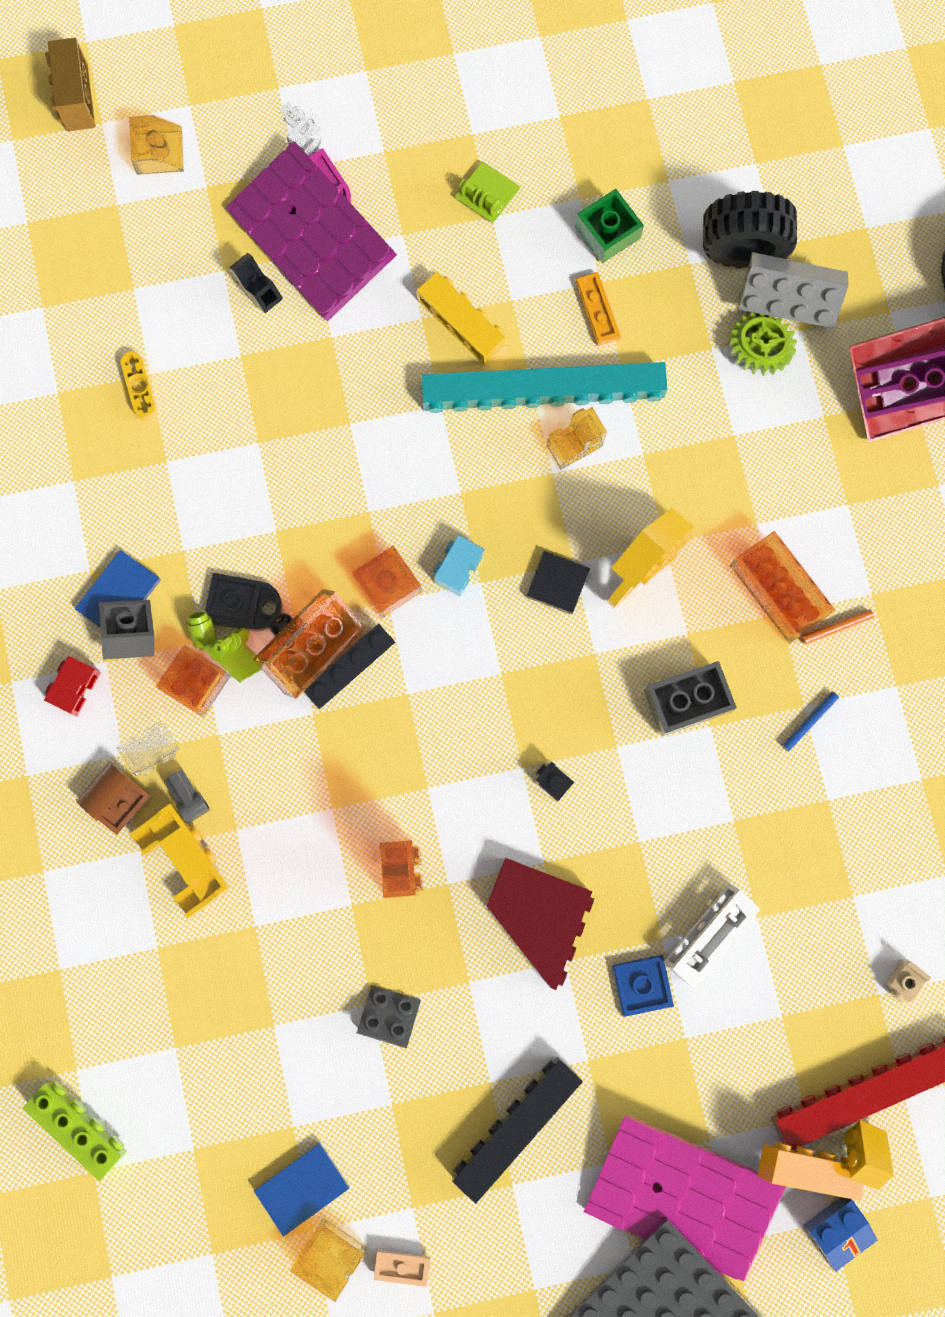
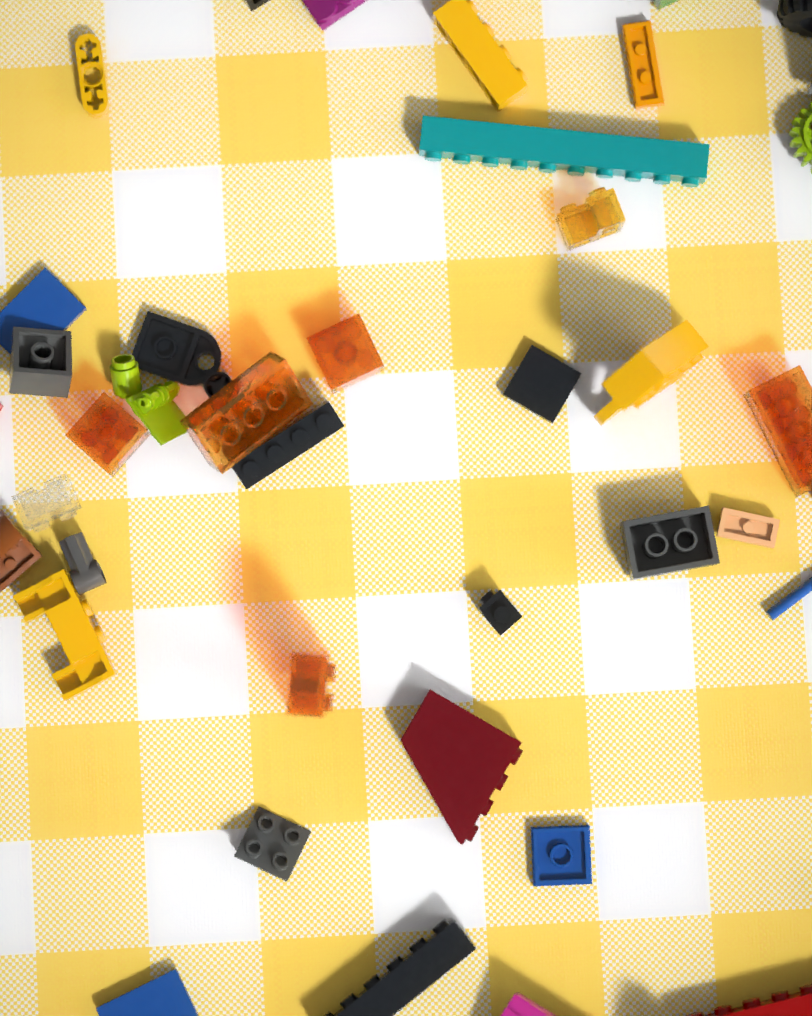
camera: 10 degrees right, 5 degrees up
(460, 559) = (434, 339): medium azure brick -> none
(712, 936) = (647, 813): white brick -> none
(754, 676) = (748, 528): none -> light nougat plate

